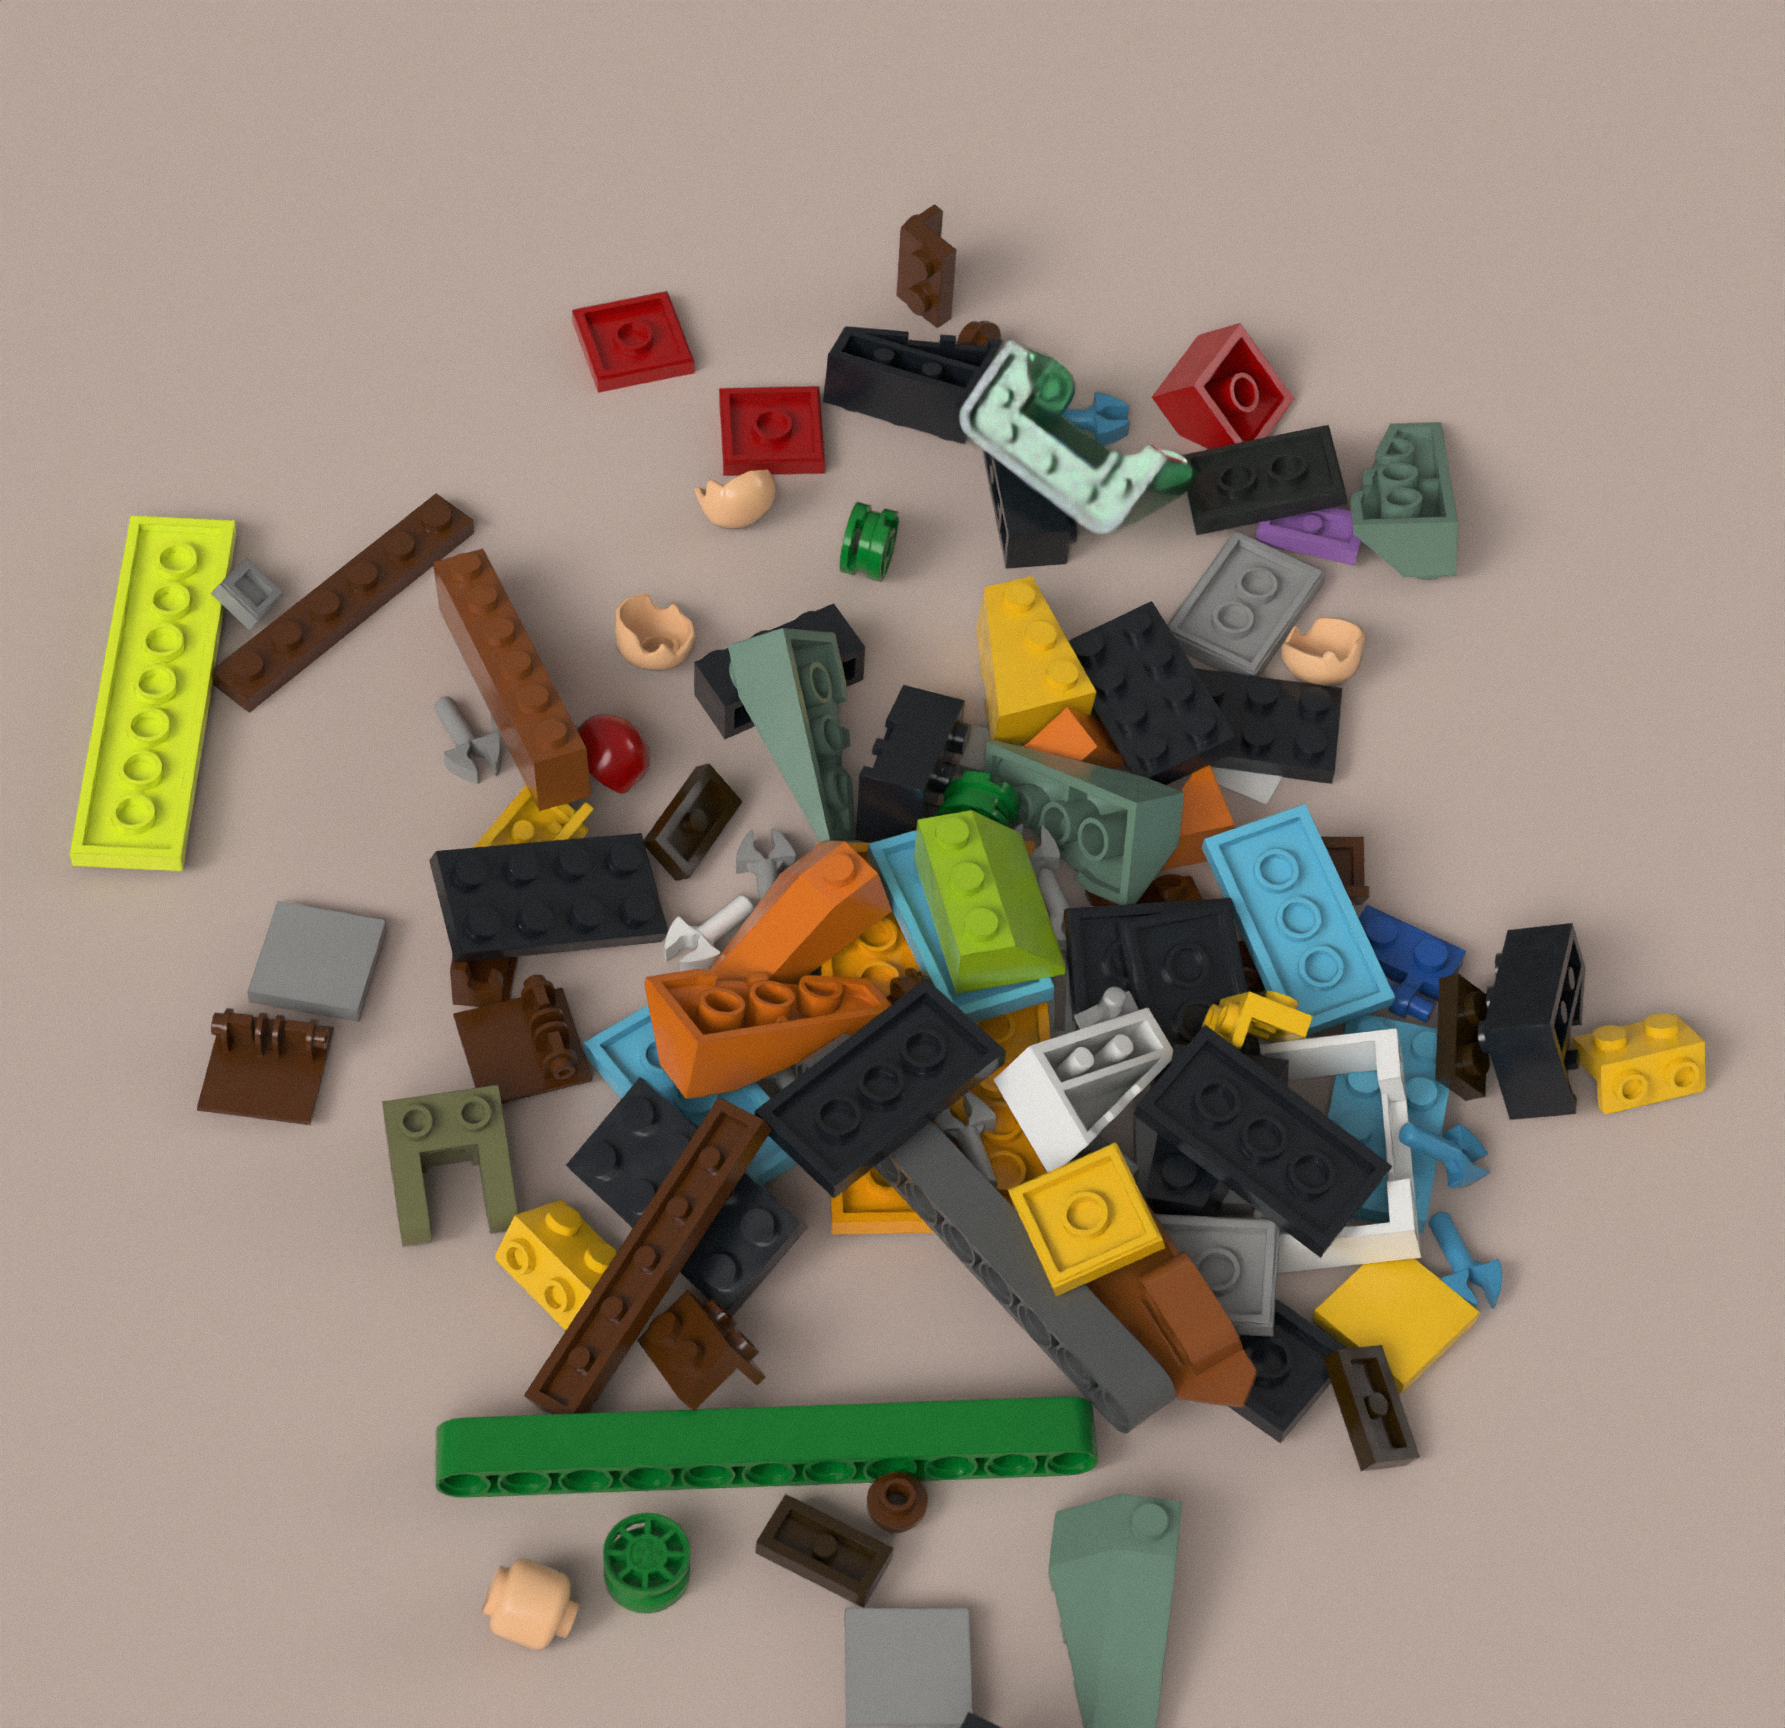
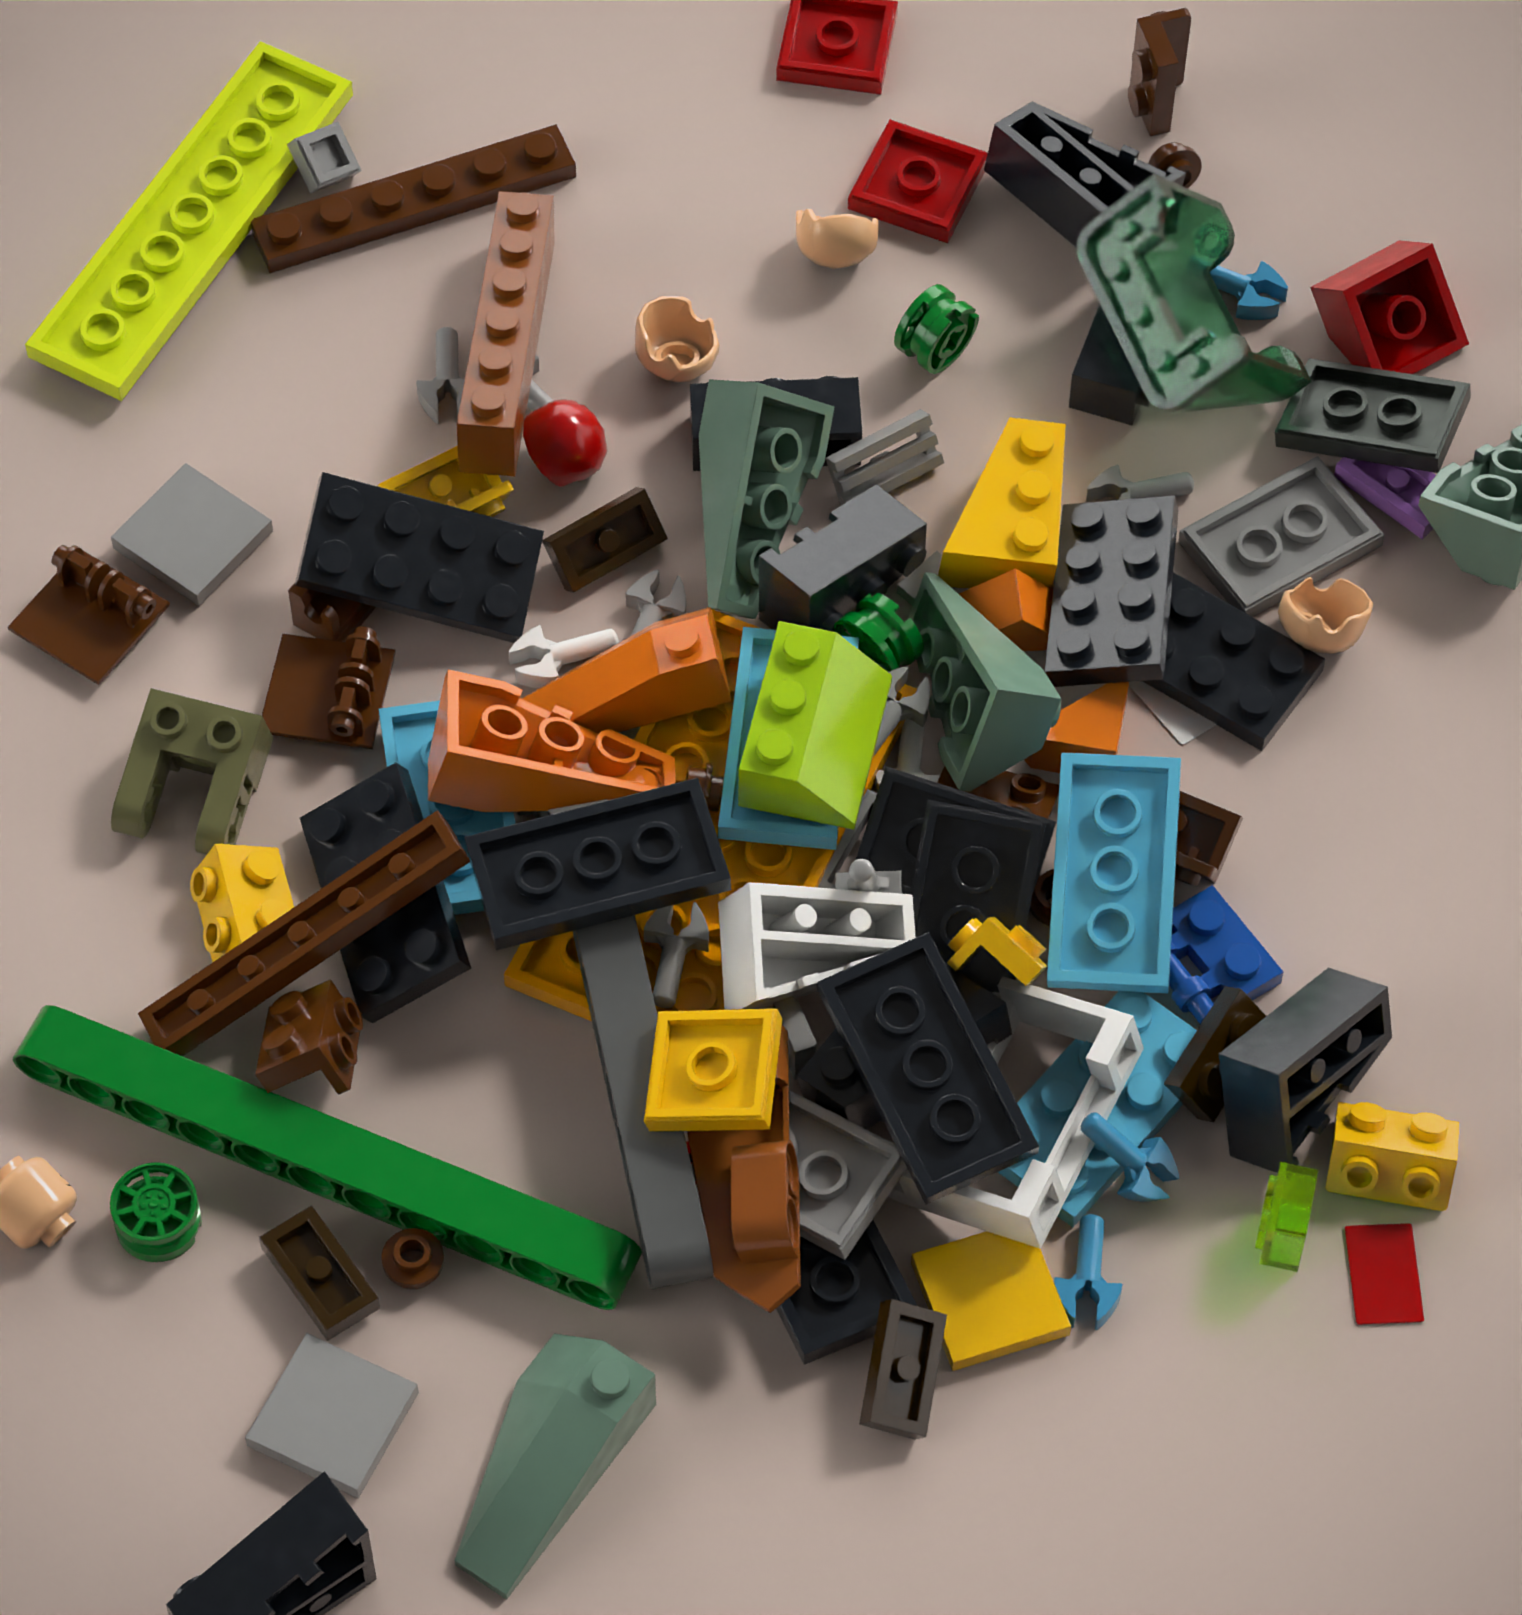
camera: 30 degrees right, 5 degrees up
(893, 671) = (889, 468): none -> light grey tile
(1084, 615) = (1112, 484): none -> light grey bar
(1597, 1145) = (1286, 1216): none -> clear neon green piece
(1688, 1161) = (1384, 1273): none -> red sticker

